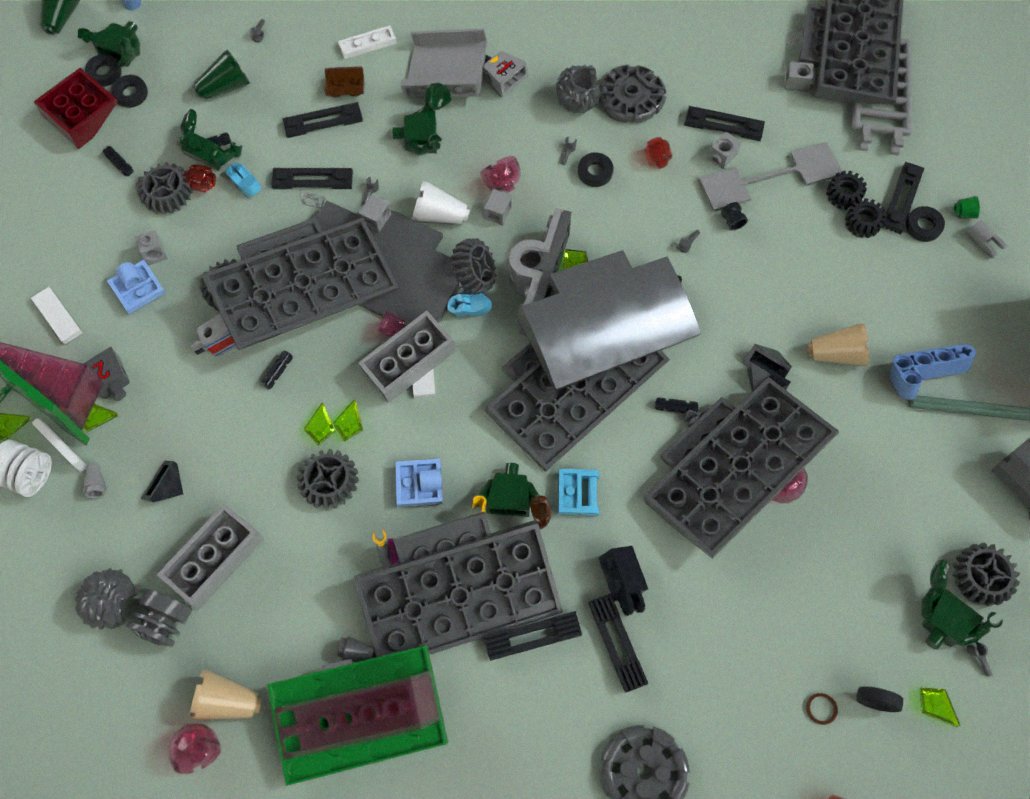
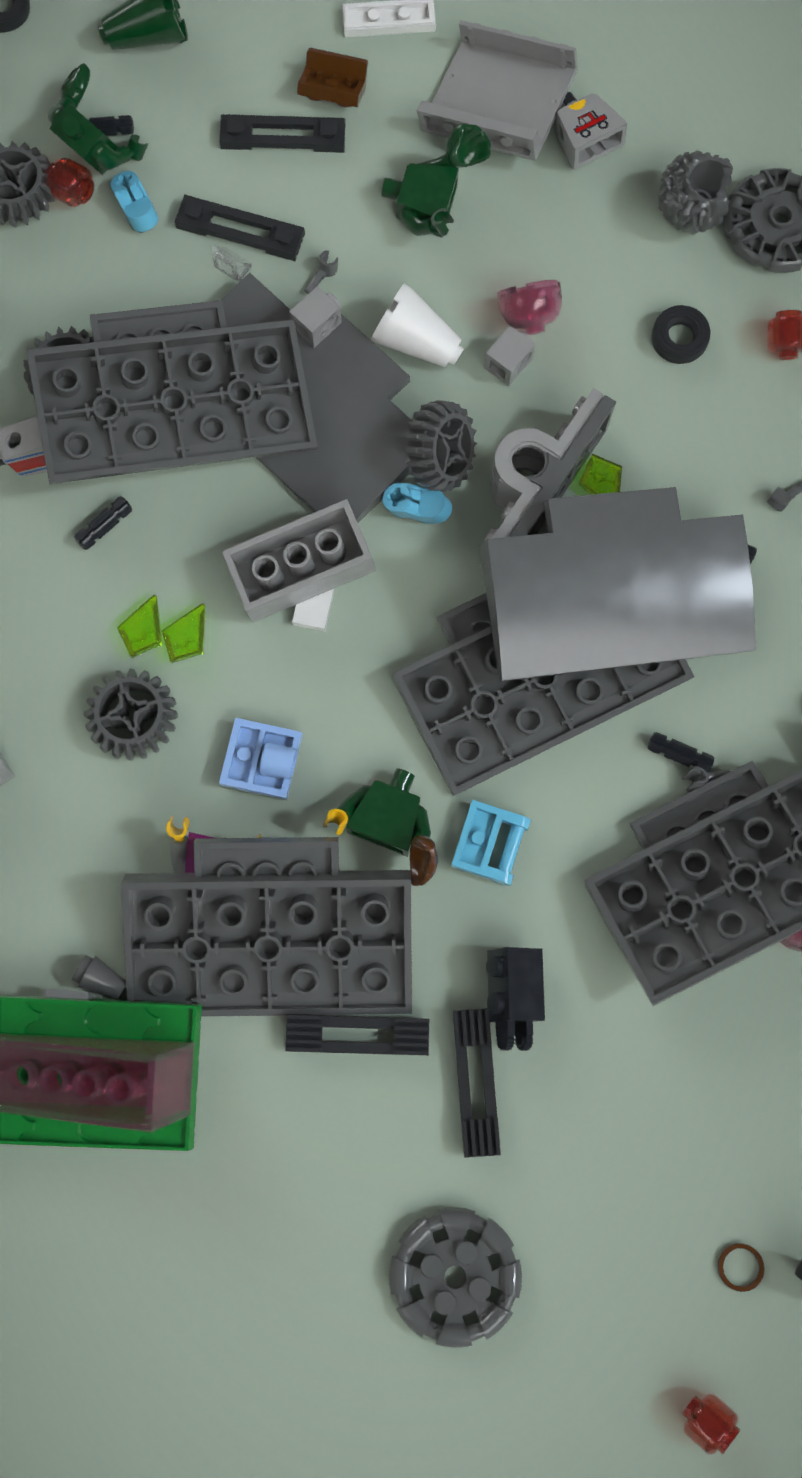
camera: 15 degrees right, 10 degrees up
(390, 324) = (290, 502): clear pink slope -> none
(569, 147) = (651, 286): dark grey hand -> none

